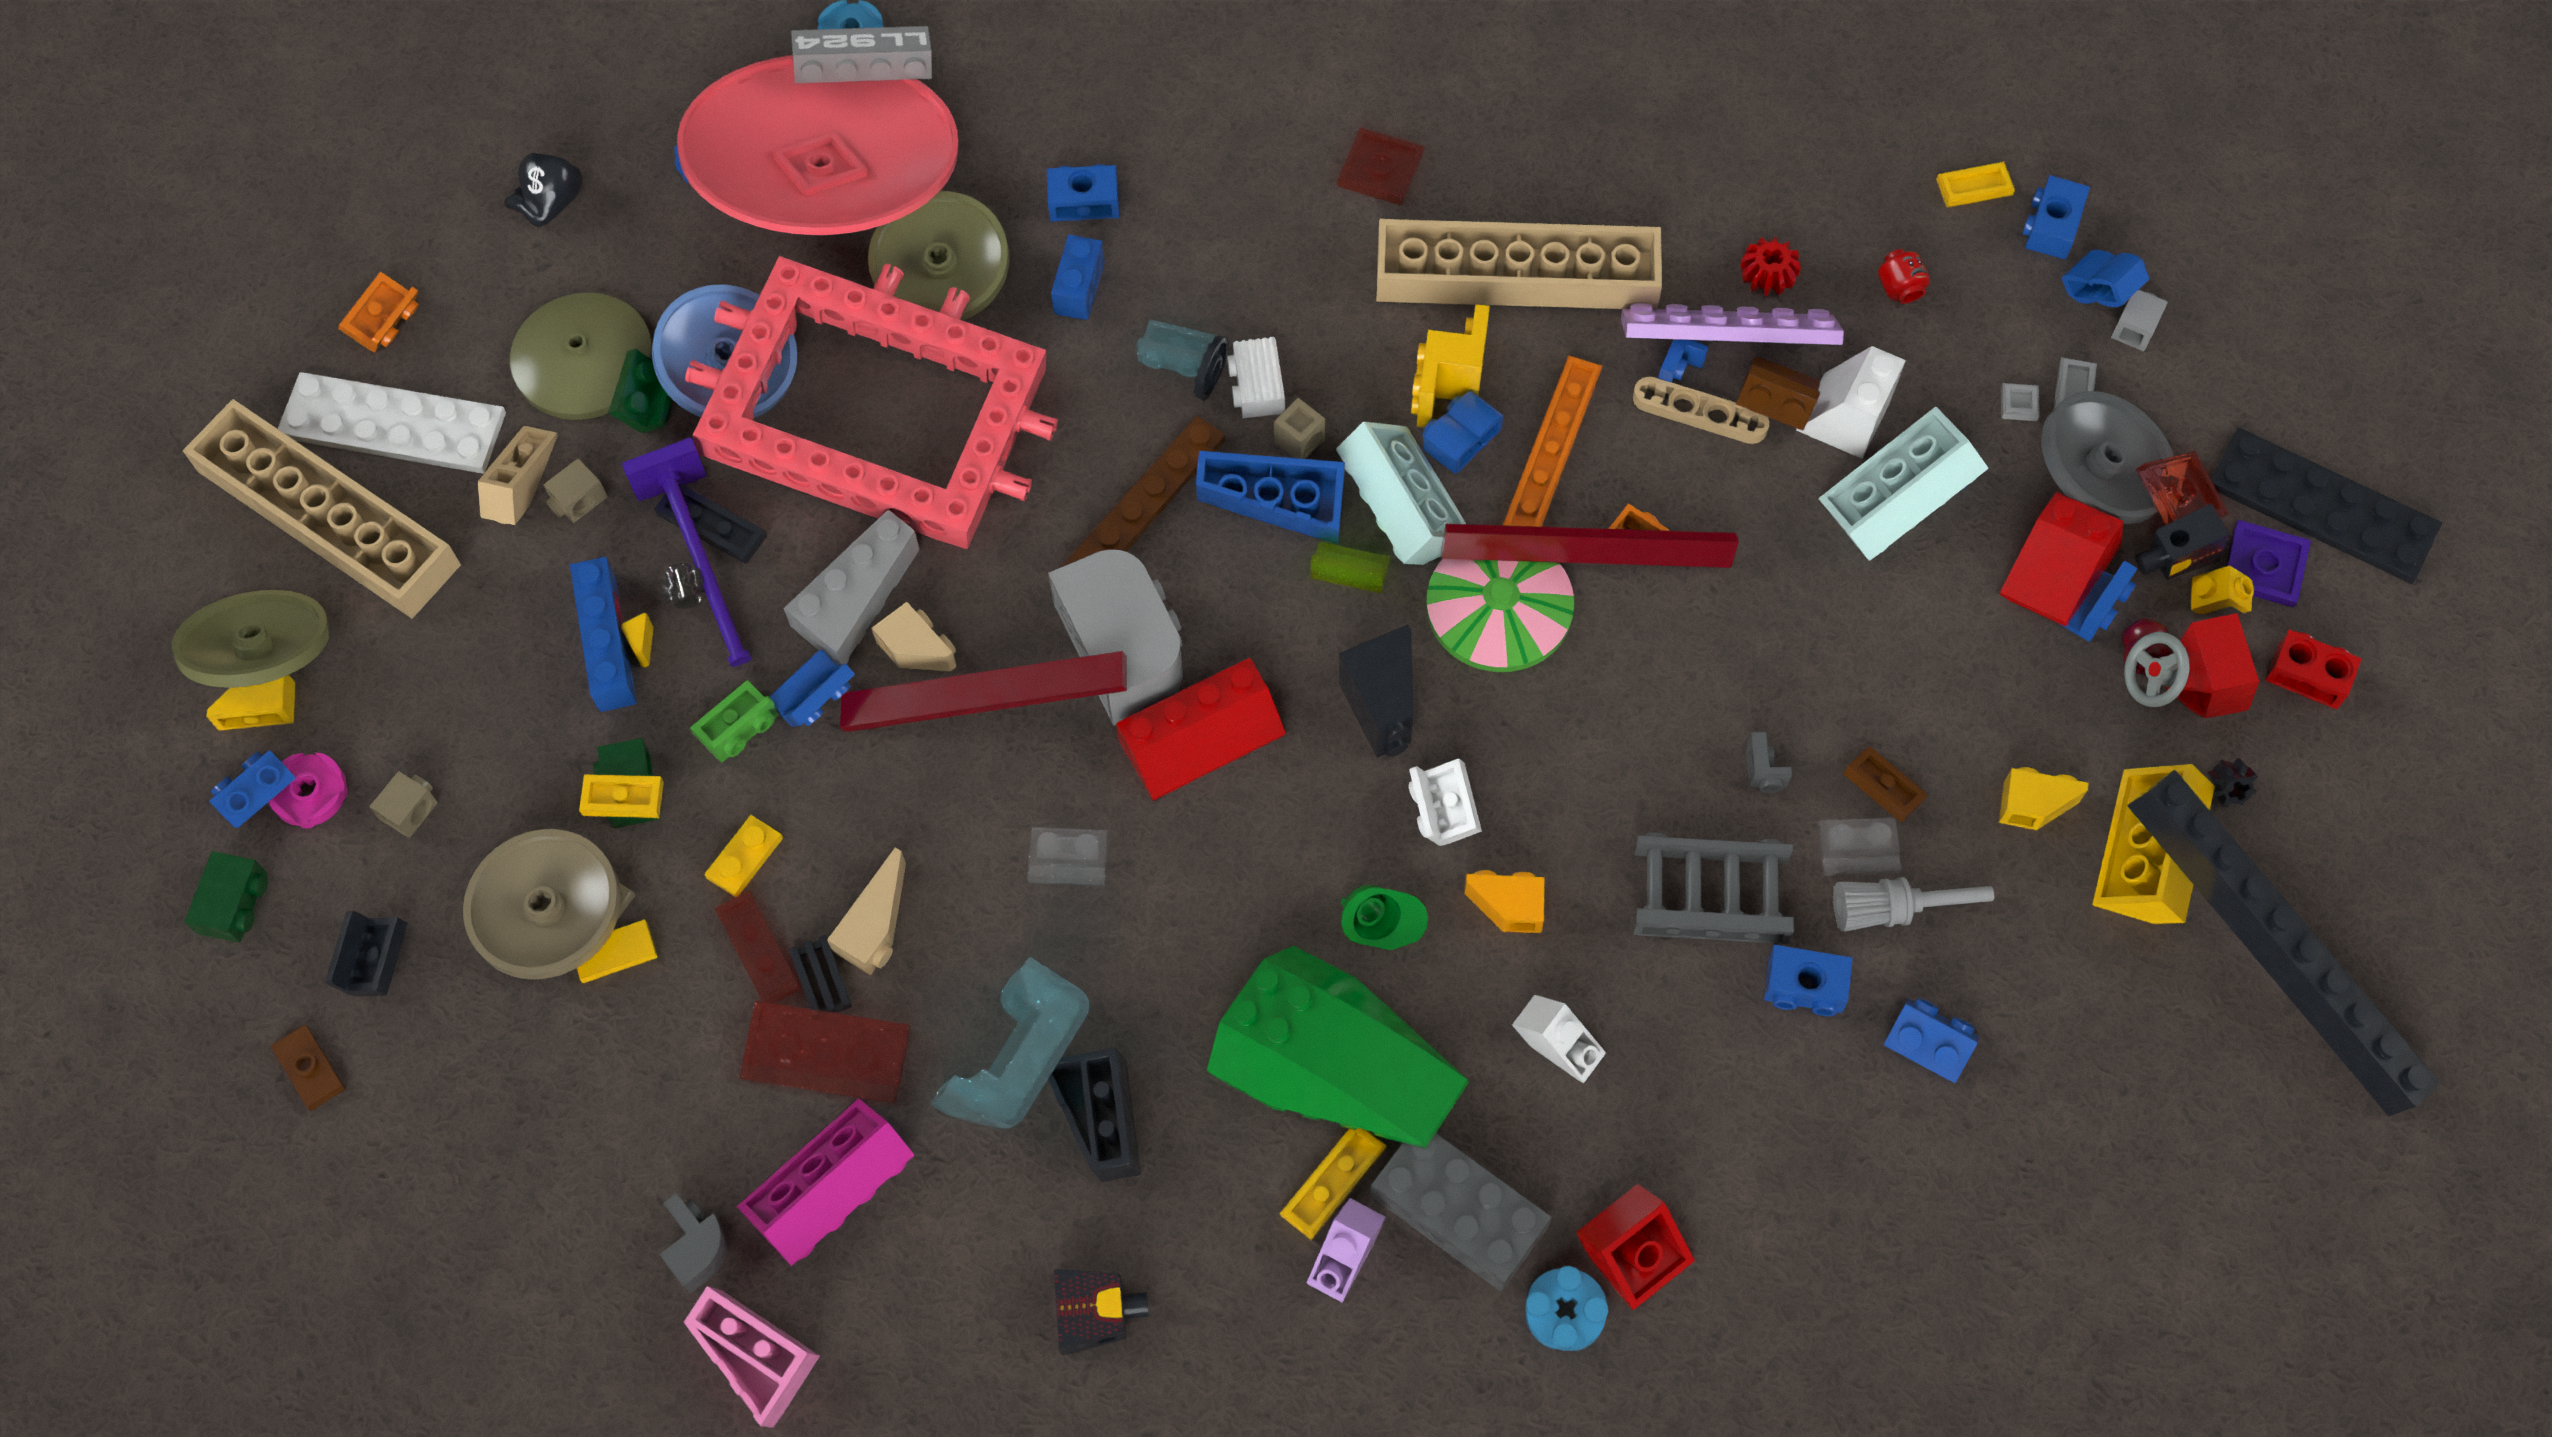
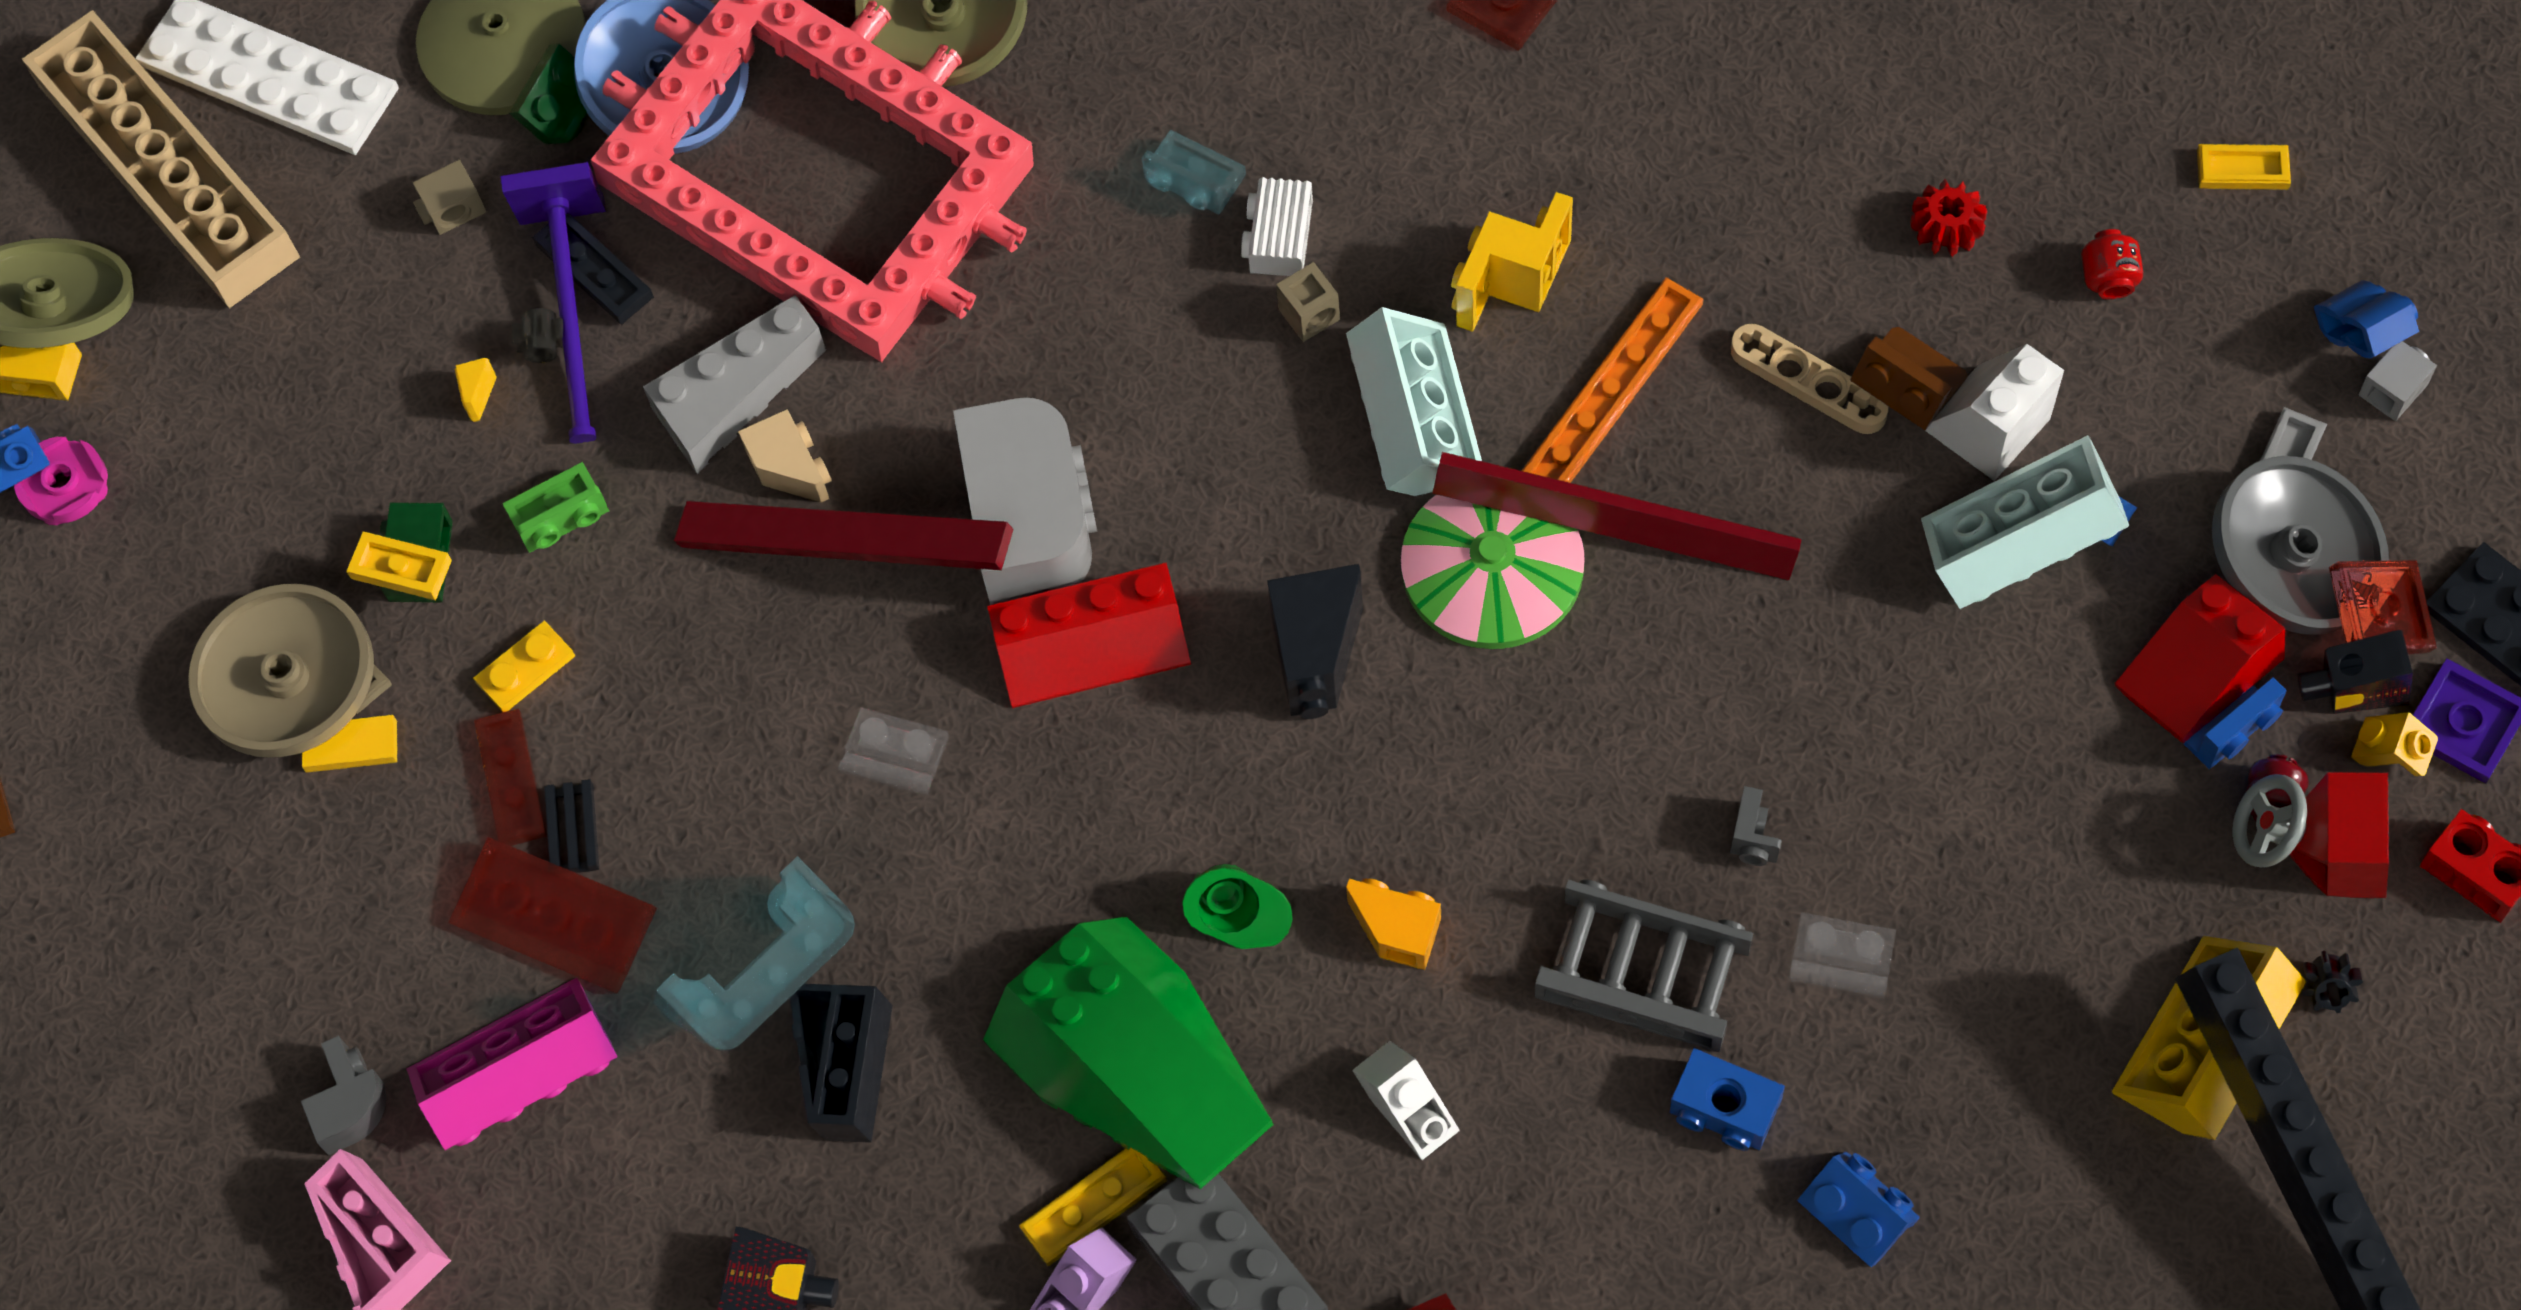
camera: 20 degrees right, 0 degrees up
(366, 954) = (74, 684): black bracket -> none
(404, 803) = (162, 520): dark tan brick -> none
(515, 475) = (384, 167): tan slope -> none
(602, 635) = (430, 381): blue brick -> none
(809, 688) = (650, 486): blue bracket -> none
(869, 926) = (645, 776): tan slope -> none
(1078, 277) = (1099, 61): blue brick -> none
(1152, 491) = (1118, 338): reddish brown plate -> none
(1211, 367) = (1224, 203): black wheel -> none
(1275, 490) = (1260, 368): blue wedge -> none
(1349, 567) = (1323, 480): clear neon green panel -> none
(1444, 802) = (1351, 787): white bracket -> none
(1462, 431) = (1506, 344): blue brick -> none
(1518, 264) = (1634, 152): tan brick -> none
(1636, 520) = (1690, 500): orange bracket -> none
(1679, 355) = (1797, 307): blue bracket -> none
(1721, 325) = (1885, 285): lavender plate -> none
(1885, 784) = (1895, 886): reddish brown plate -> none
(1894, 902) = (1862, 1031): light grey piece -> none
(2020, 402) = (2214, 452): light grey tile -> none
(2038, 798) = (2081, 948): yellow slope -> none
(2059, 200) = (2343, 208): blue brick -> none

